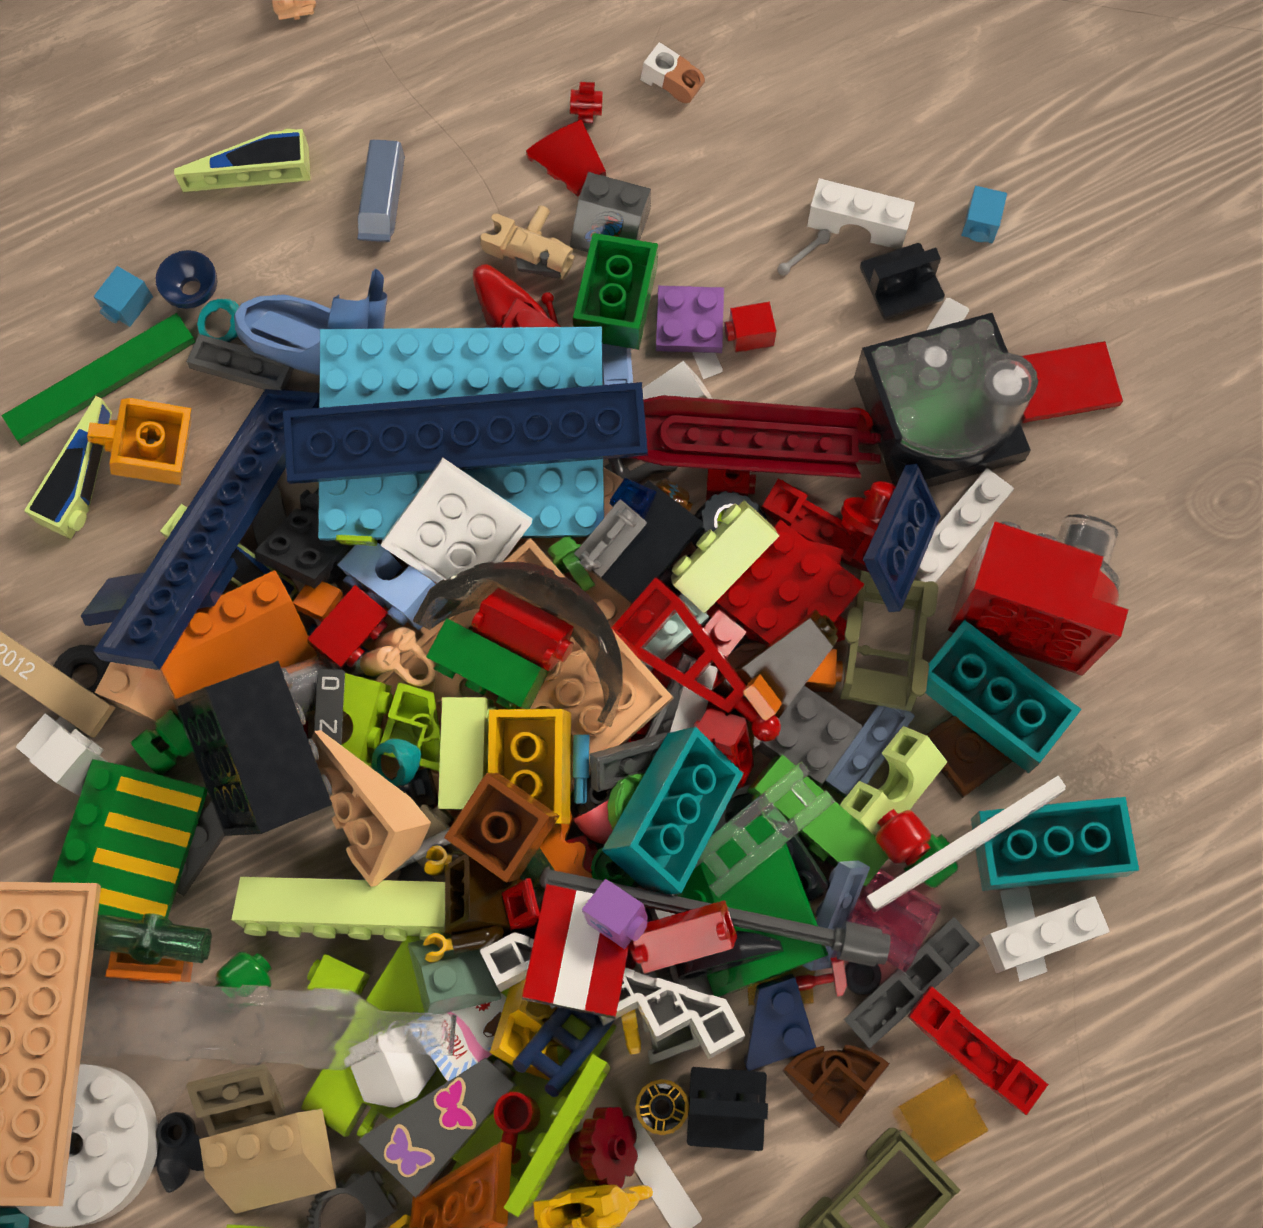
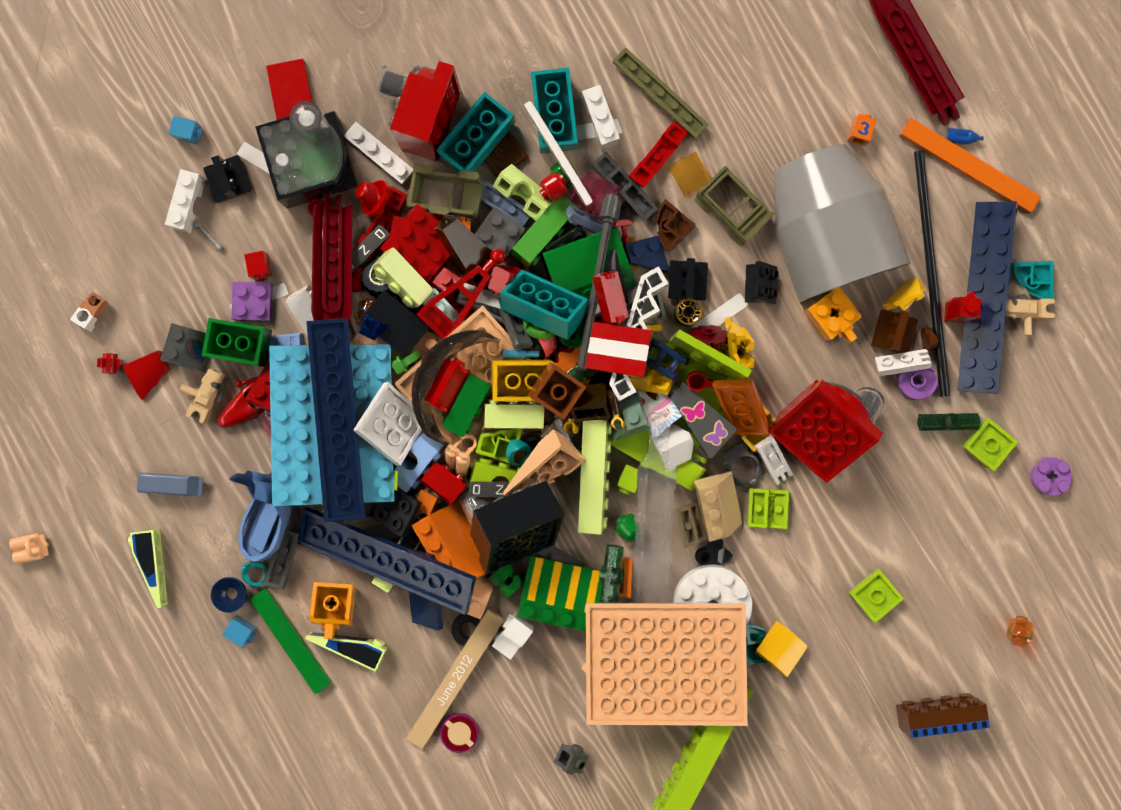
camera: 90 degrees left, 15 degrees up
(521, 905) = (595, 380): red slope -> none
(610, 538) = (394, 339): light grey hinge -> none
(616, 914) = (601, 330): medium lavender brick -> none
(762, 697) = (482, 257): orange tile -> none
(784, 502) = (368, 245): none -> dark grey sticker
(784, 829) = (552, 247): clear bar -> none
(902, 538) = (389, 182): dark blue tile -> none
(1101, 1059) = (660, 93): none -> olive plate

